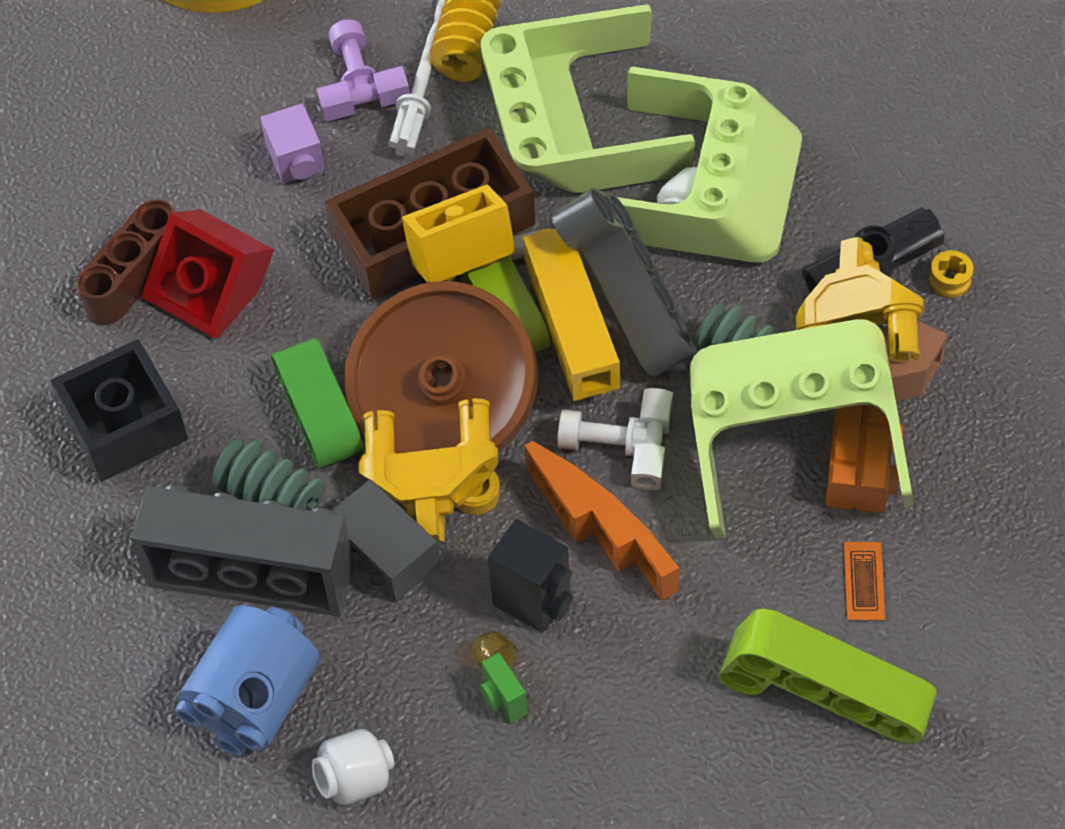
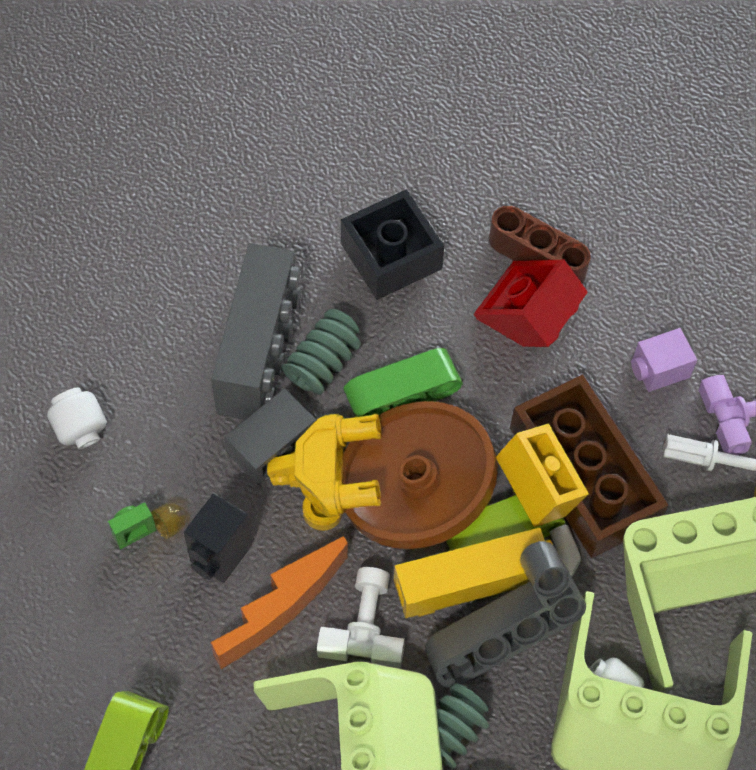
camera: 85 degrees right, 5 degrees up
(249, 678) = (146, 340): medium blue cylinder -> none

